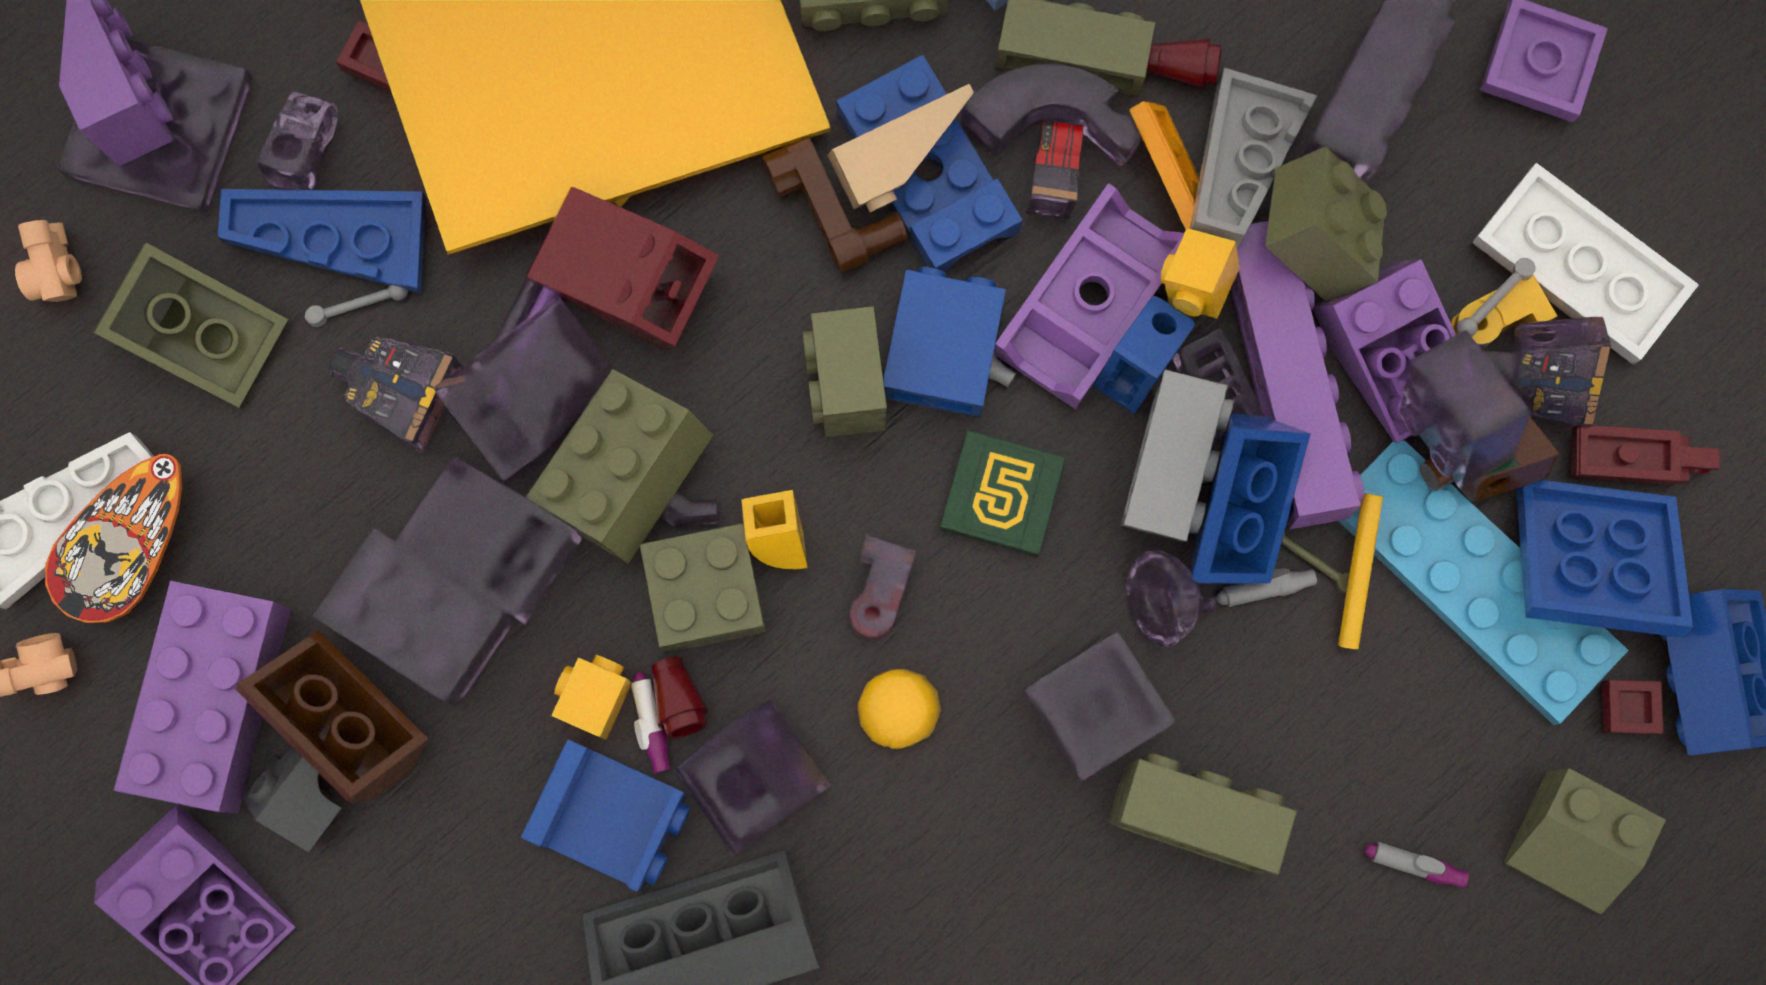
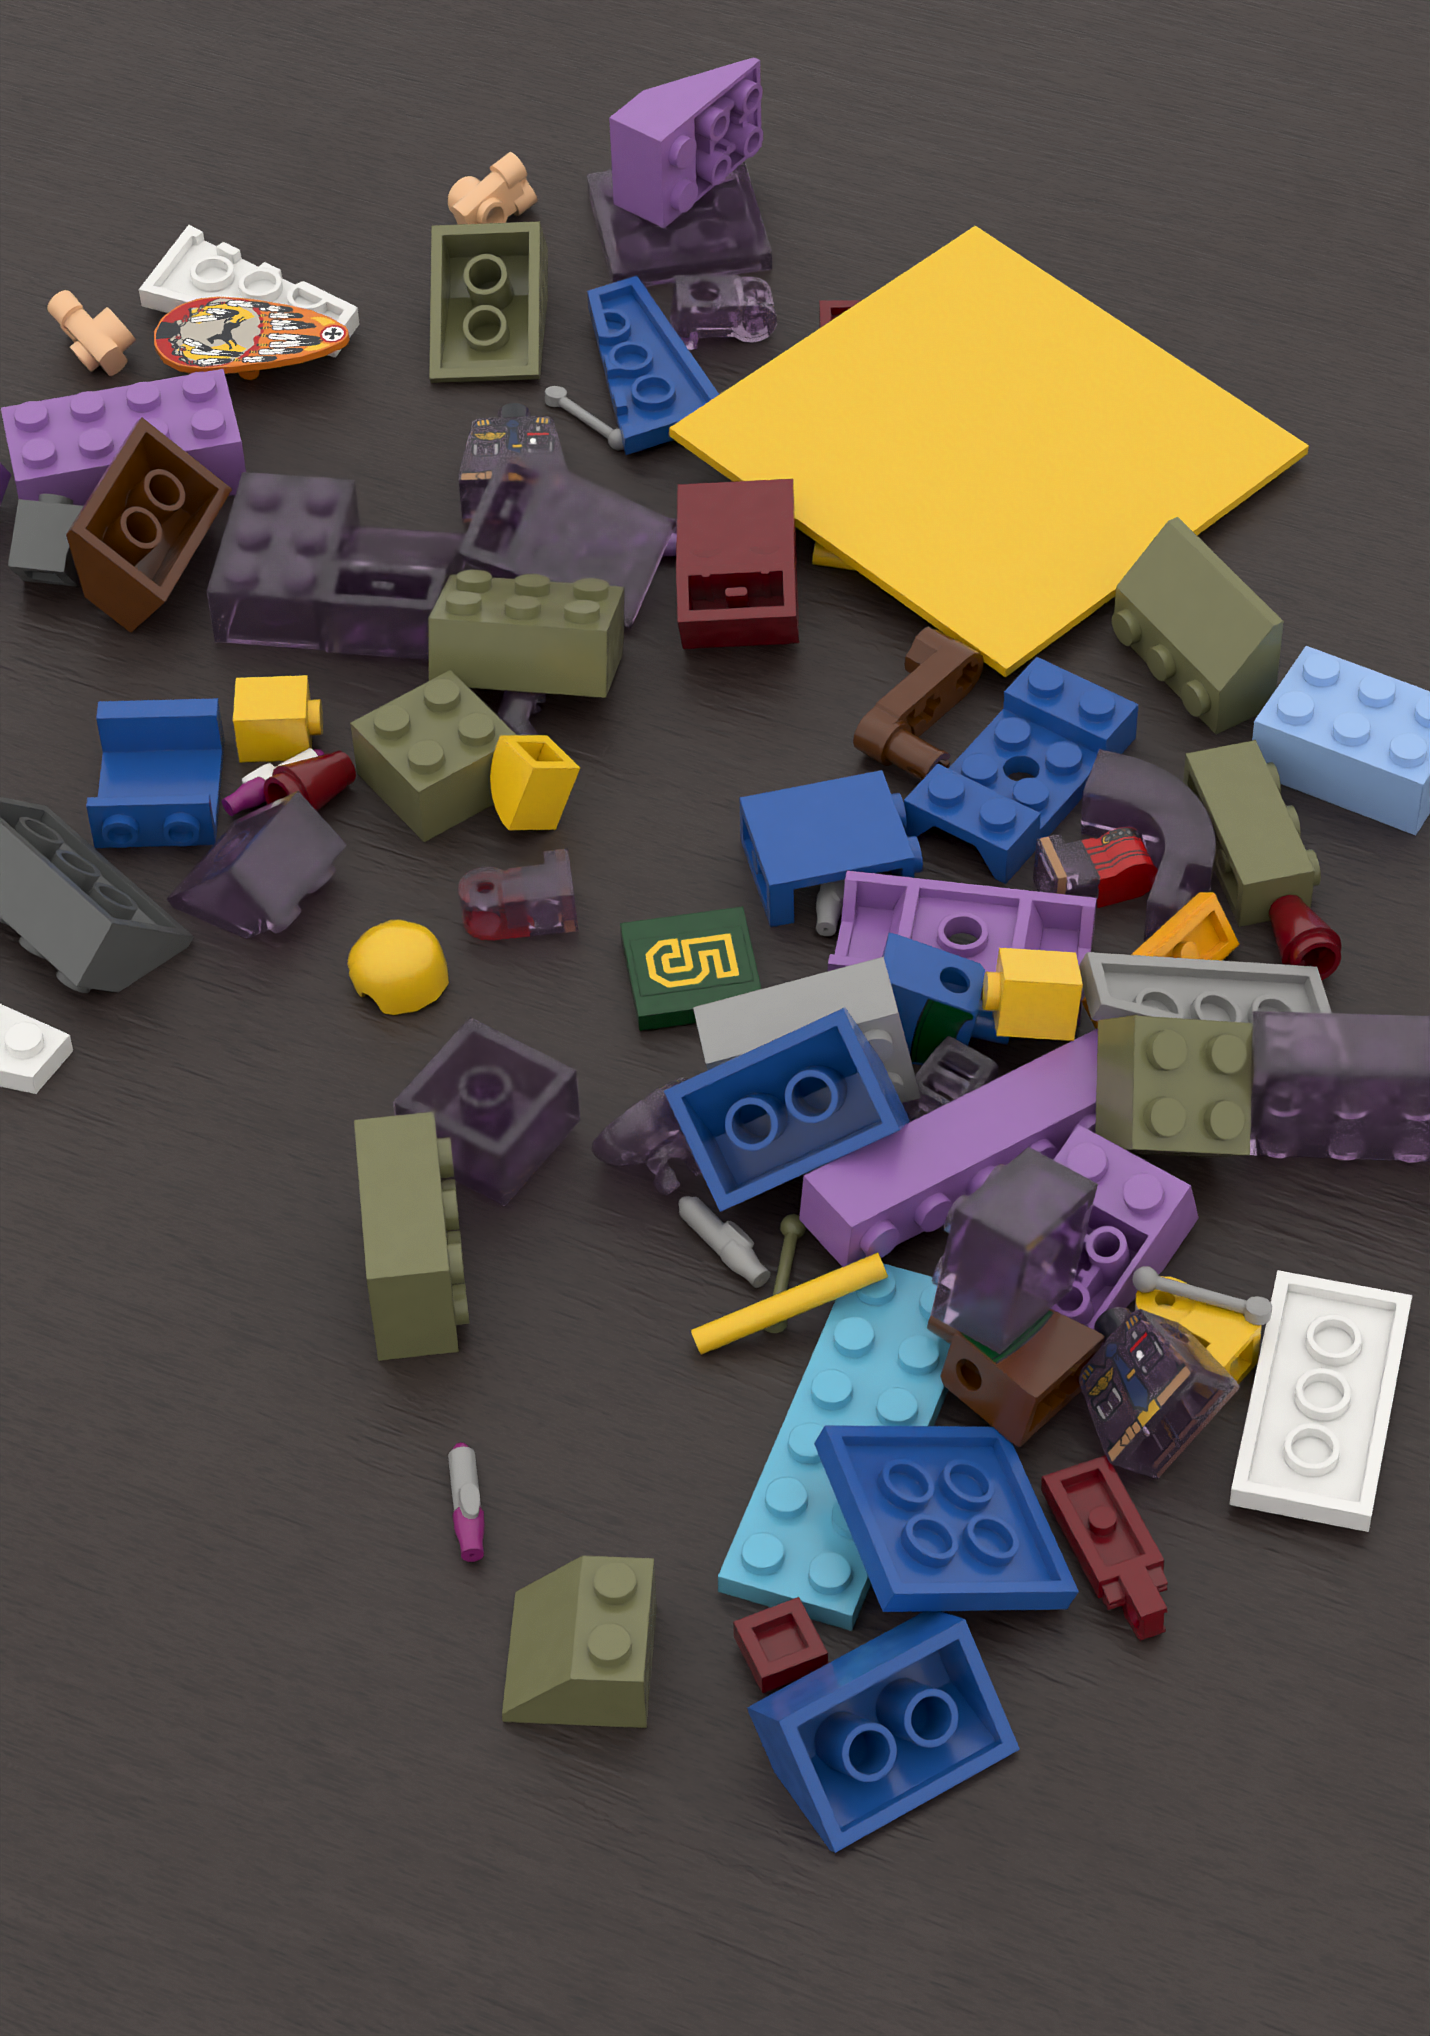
camera: 70 degrees right, 30 degrees down
(849, 372) = (728, 752): olive brick -> none
(888, 155) = (1009, 709): tan slope -> none

